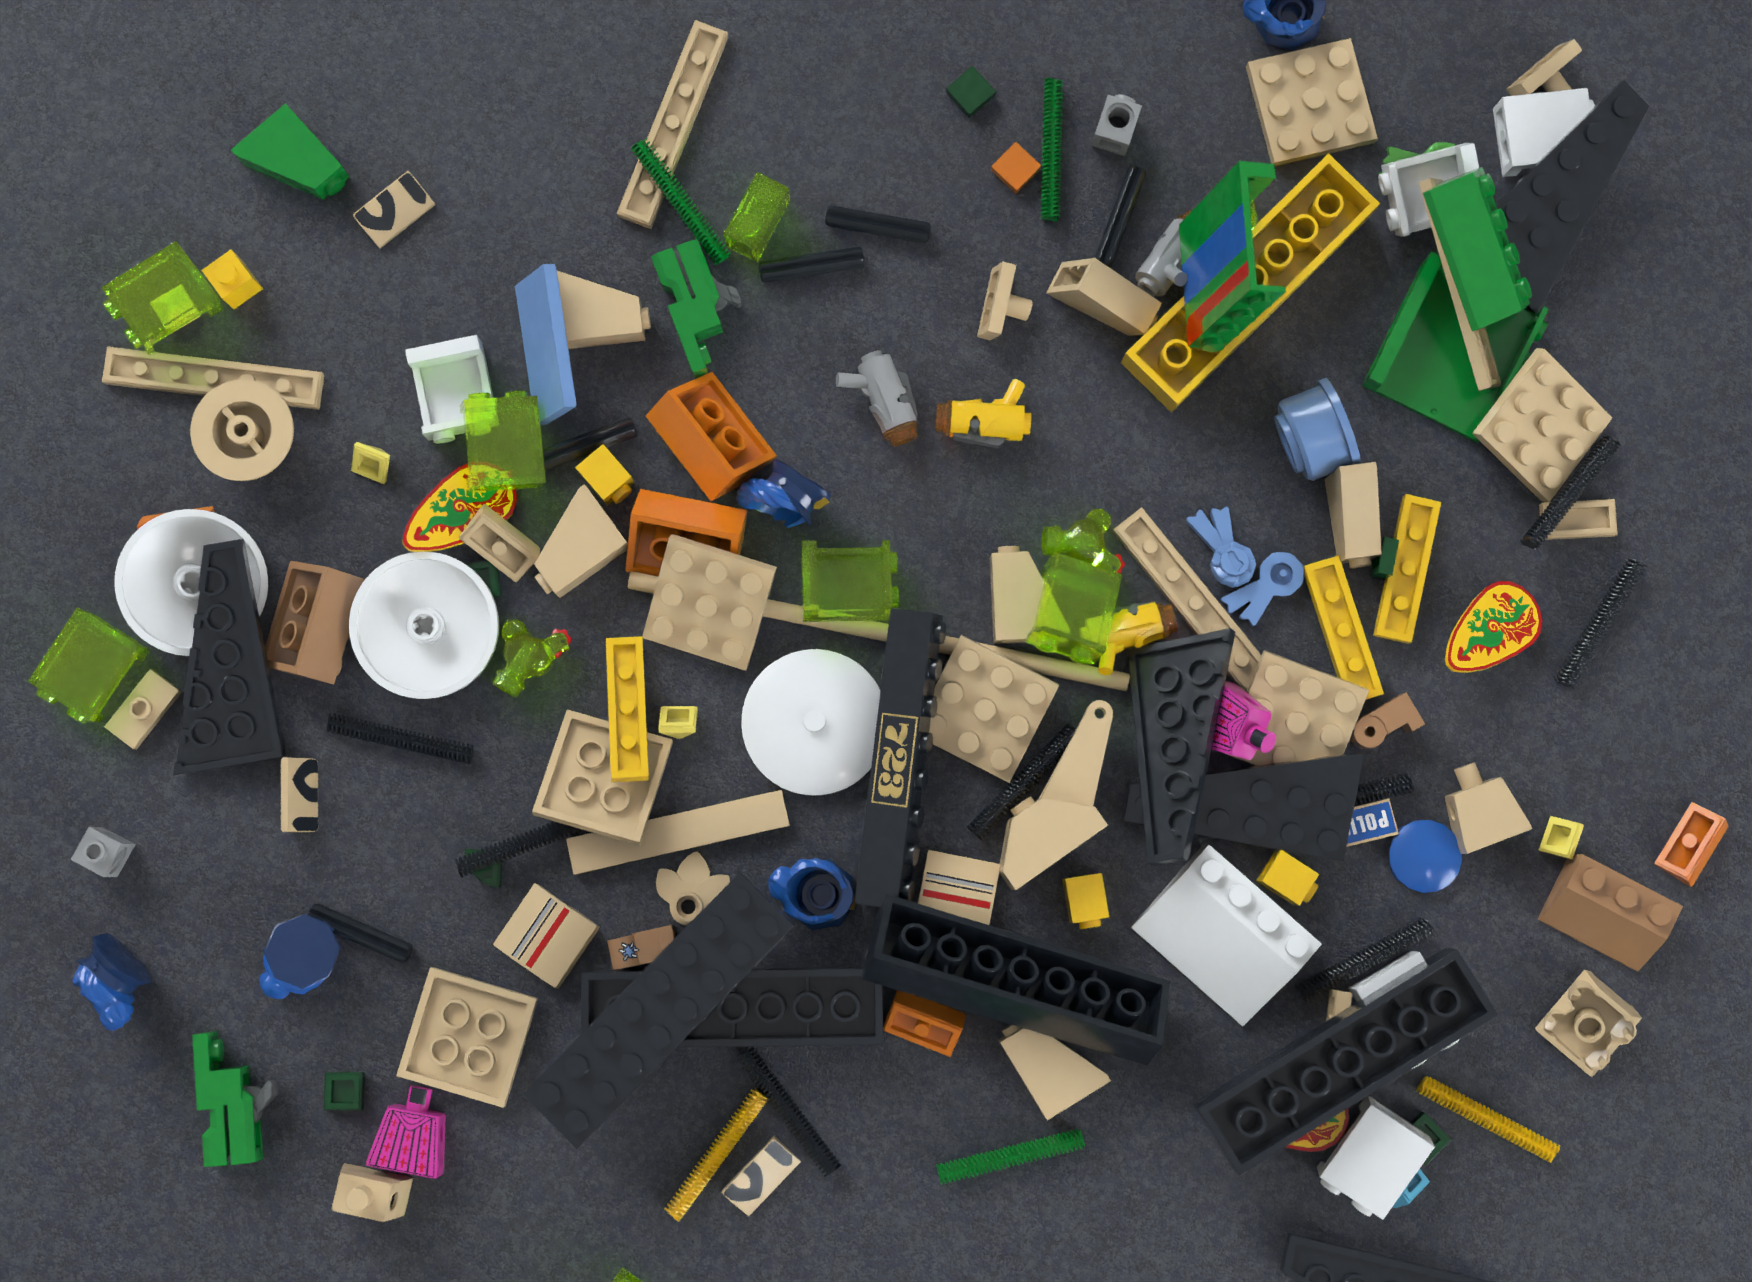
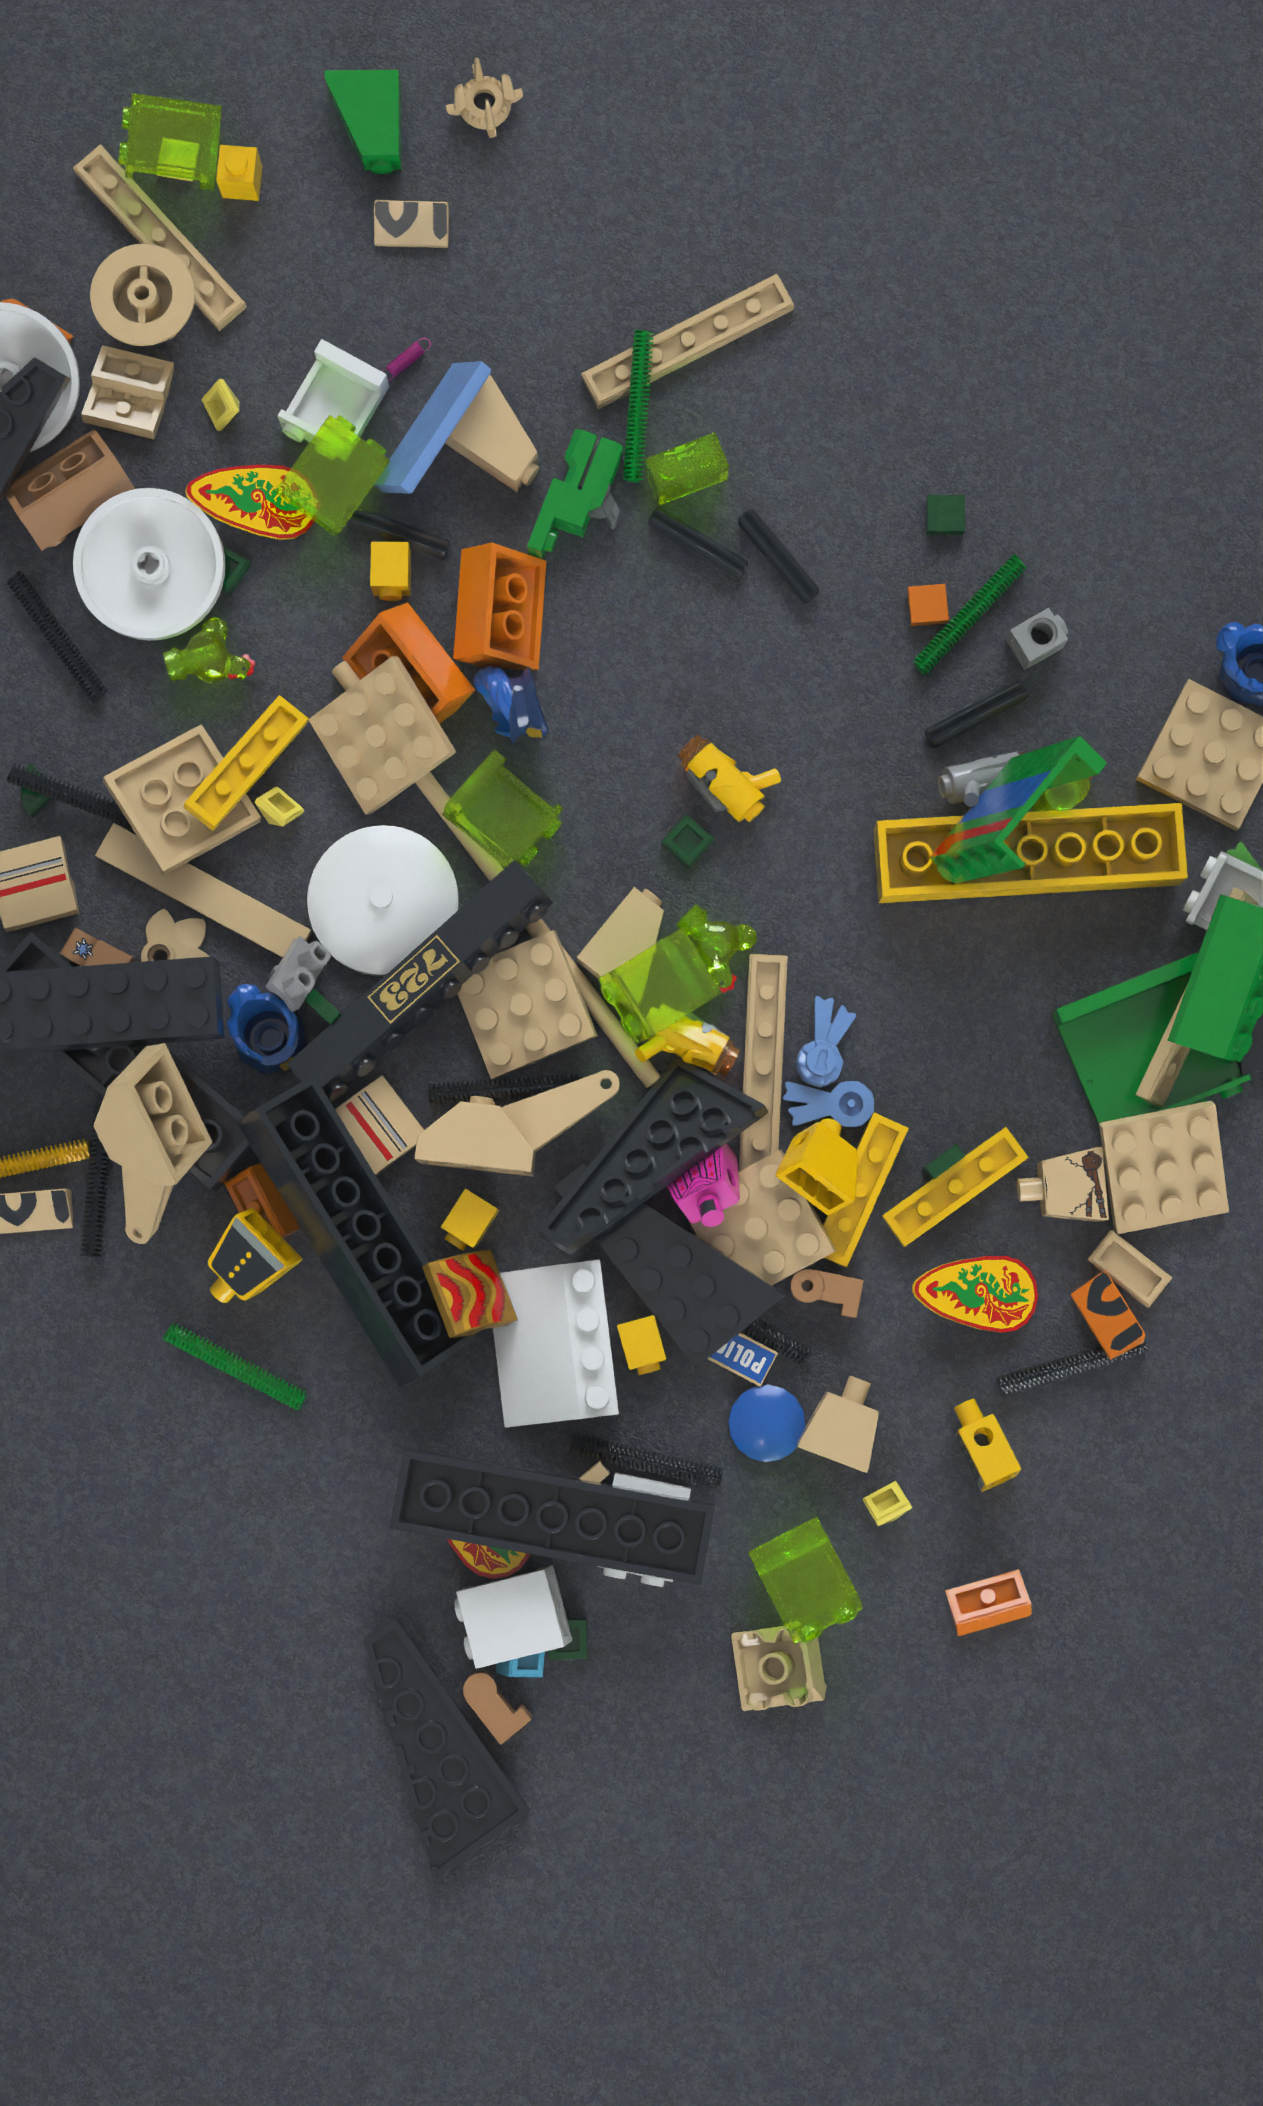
camera: 45 degrees right, 0 degrees up
(292, 512) = (128, 392): none -> tan slope
(384, 74) = (491, 116): none -> tan piece
(477, 312) = (405, 359): none -> dark pink piece
(500, 543) = (263, 552): tan slope -> none
(579, 545) = (322, 605): tan slope -> none
(803, 833) = (298, 972): none -> light grey hips
(811, 1044) = (152, 1133): none -> tan slope
(843, 838) = (322, 1006): none -> dark green tile
(888, 394) = (665, 697): light grey piece -> none
(954, 1068) = (249, 1258): none -> torso
(995, 487) = (687, 841): none -> dark green tile
(1001, 303) = (820, 701): tan tile -> none
(1050, 1069) = (324, 1326): tan slope -> none
(1104, 296) = (905, 765): tan slope -> none
(1137, 952) = (469, 1293): none -> slope
(1305, 637) = (821, 1167): none -> yellow torso
(1316, 431) = (973, 1014): medium blue wheel -> none
(1355, 513) = (949, 1106): tan slope -> none
(1417, 1236) = (492, 1707): none -> medium nougat leg
(1483, 1115) = (633, 1669): yellow axle -> none
(1487, 496) = (1069, 1186): none -> torso
(1559, 944) = (806, 1581): none -> clear neon green panel
(1570, 492) = (1139, 1240): black axle -> none
(1596, 565) = (1108, 1315): none -> slope
(1609, 912) = (890, 1609): medium nougat slope -> none
(1612, 738) = (988, 1463): none -> yellow torso

